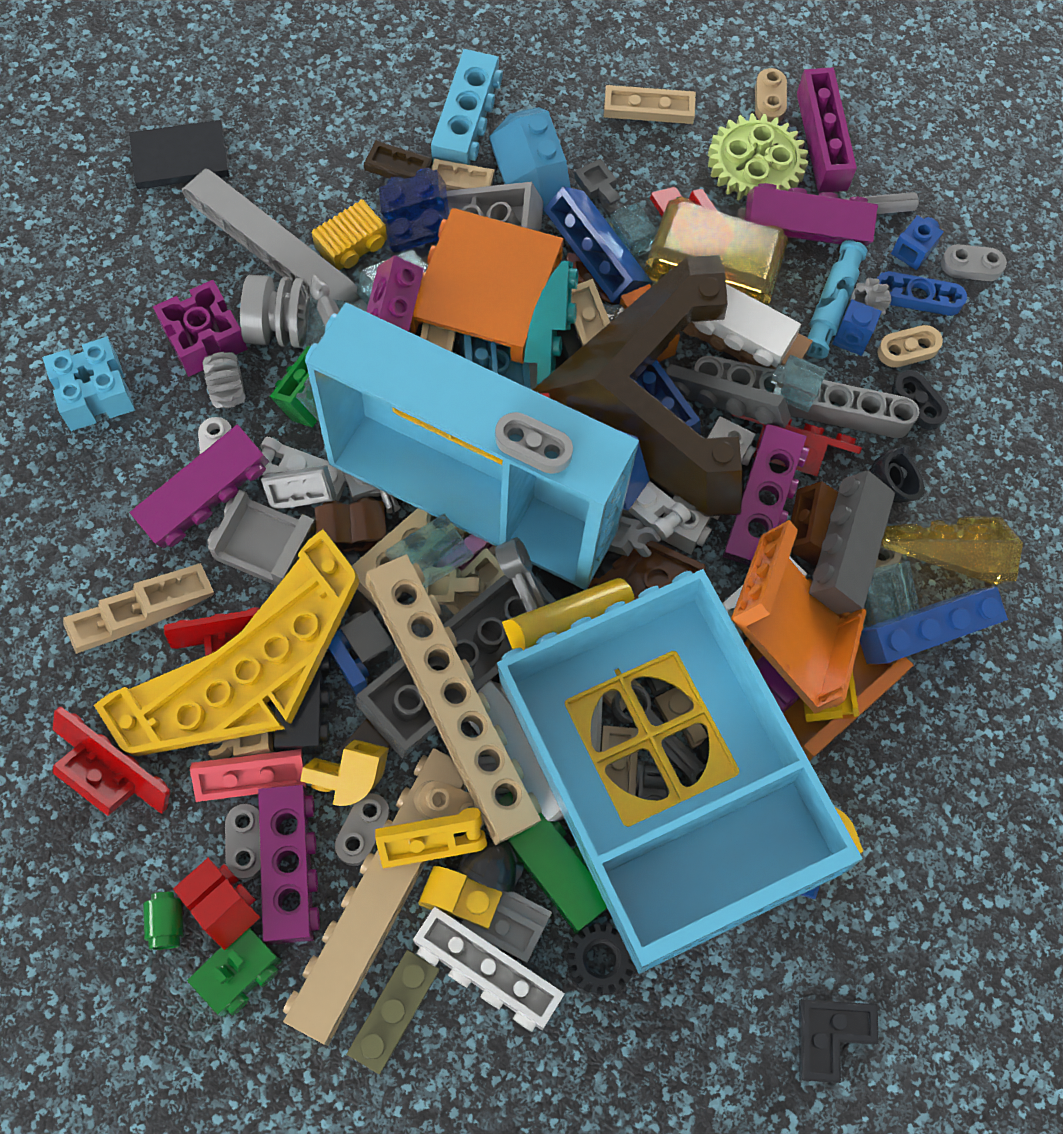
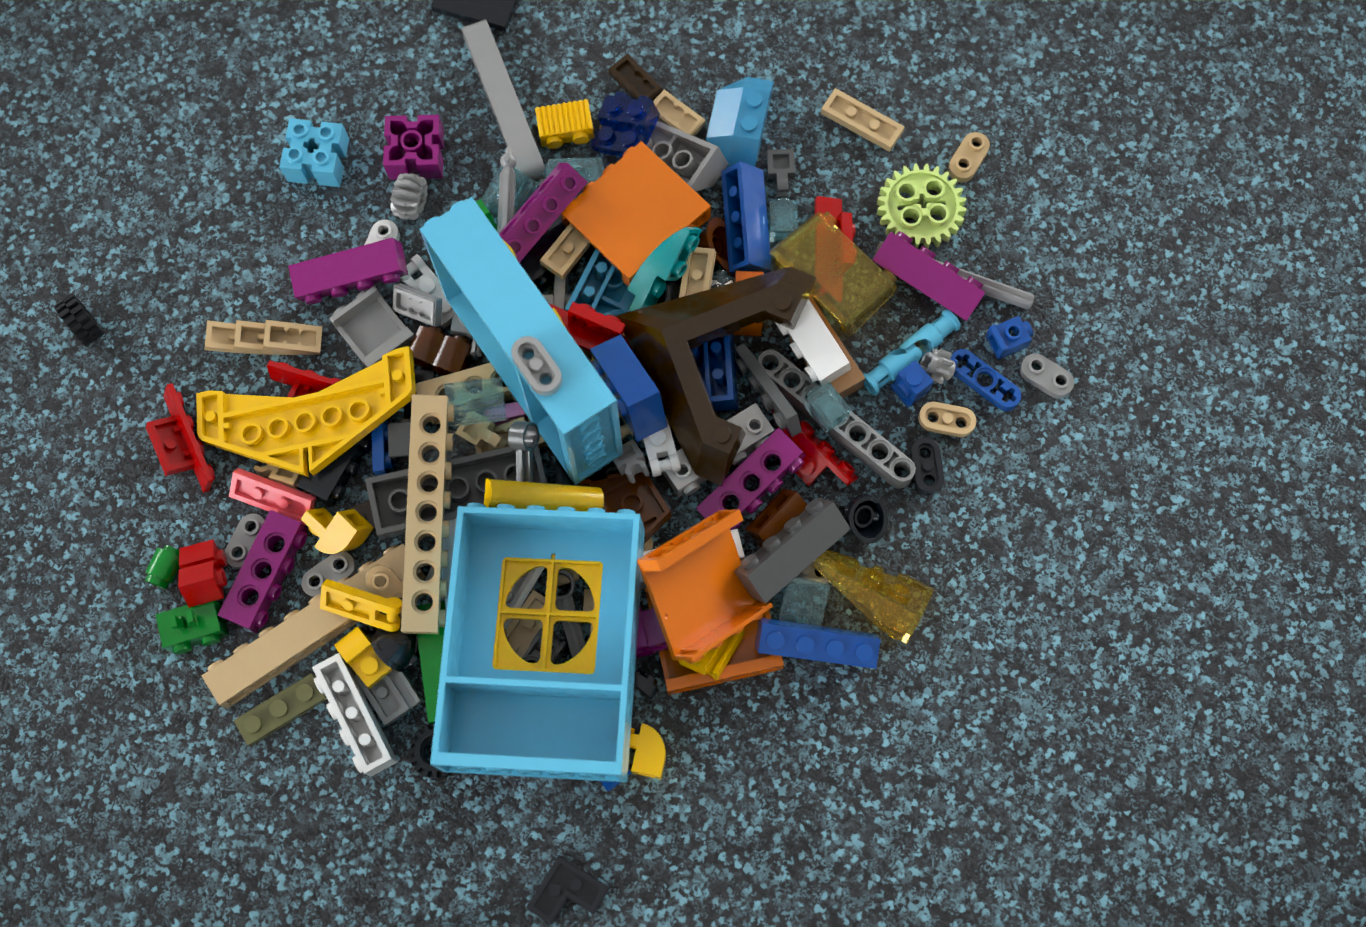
camera: 35 degrees right, 5 degrees up
(270, 311) = (470, 159): light grey wheel -> none
(466, 108) = (733, 28): medium azure brick -> none
(826, 130) = (989, 208): magenta brick -> none

